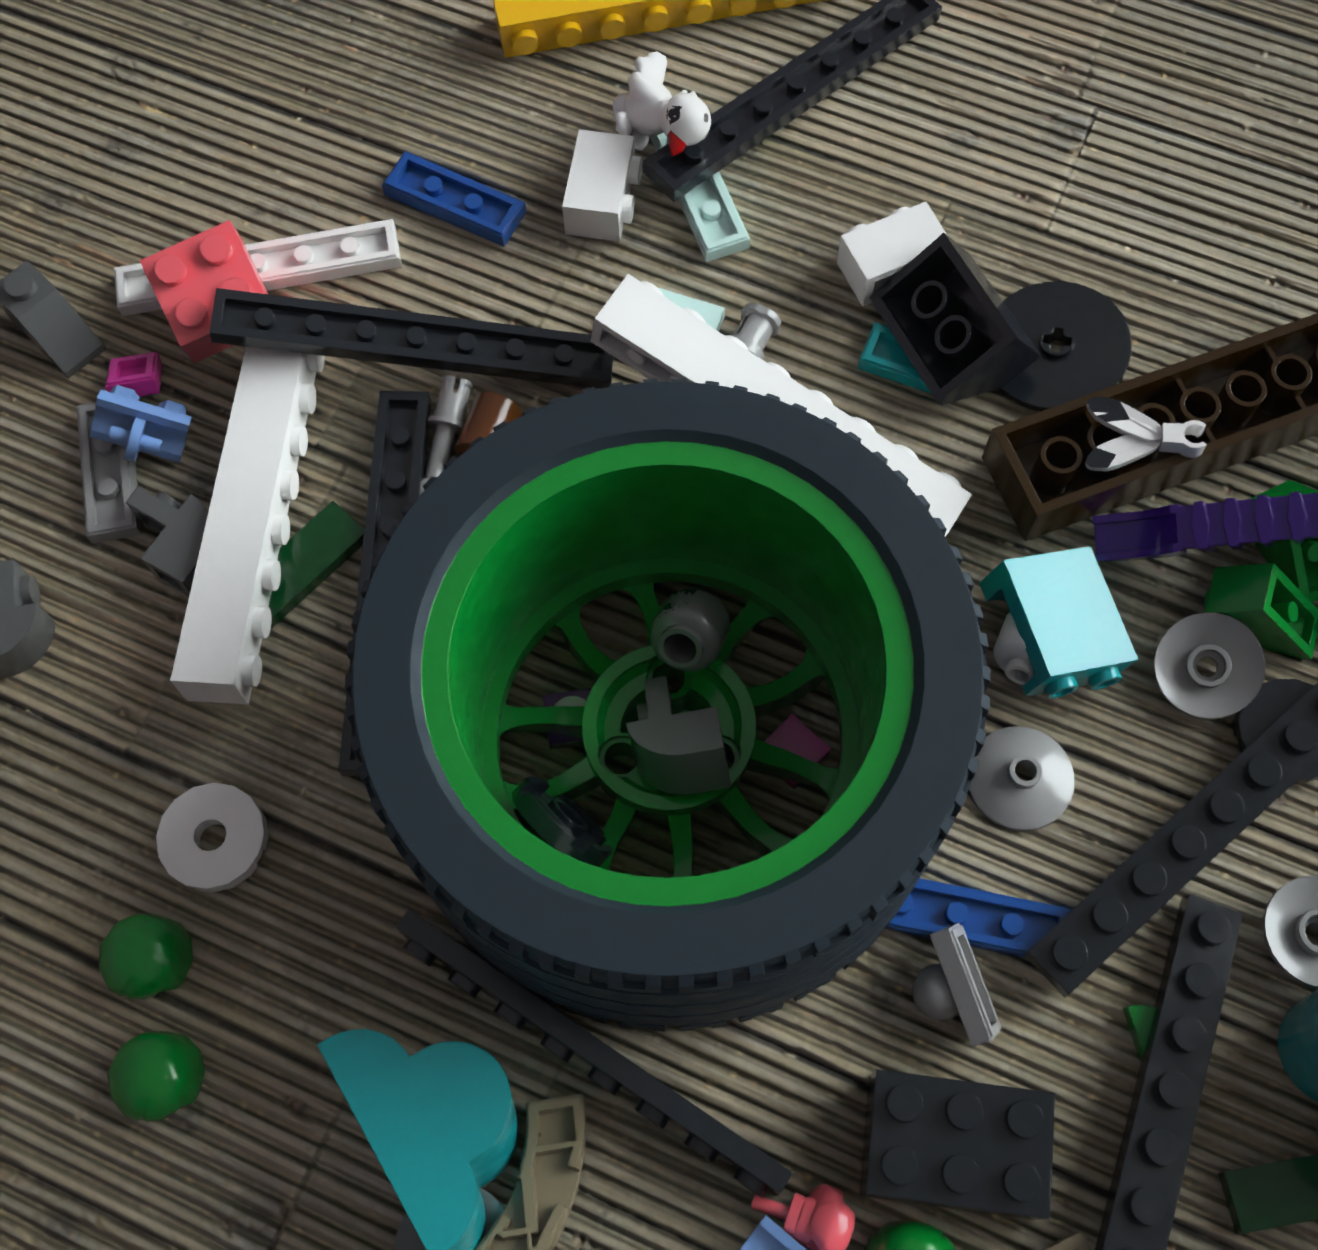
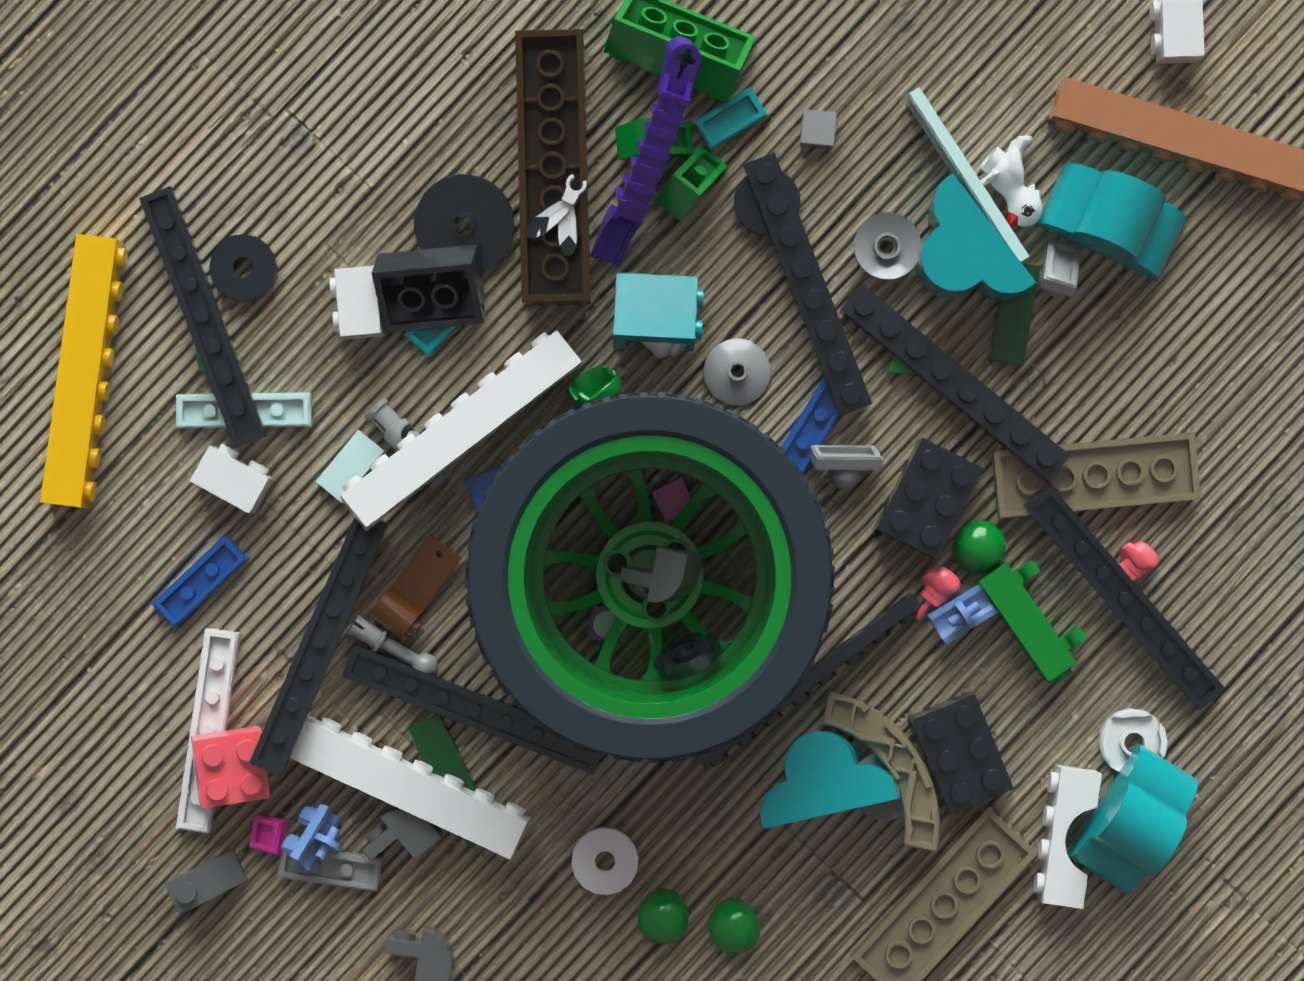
camera: 75 degrees left, 20 degrees up
(653, 111) = (191, 428): white animal -> none
(690, 630) = (604, 545): dark grey head -> none
(881, 99) = (225, 259): none -> black tile
(1237, 660) = (726, 243): light grey dish -> none

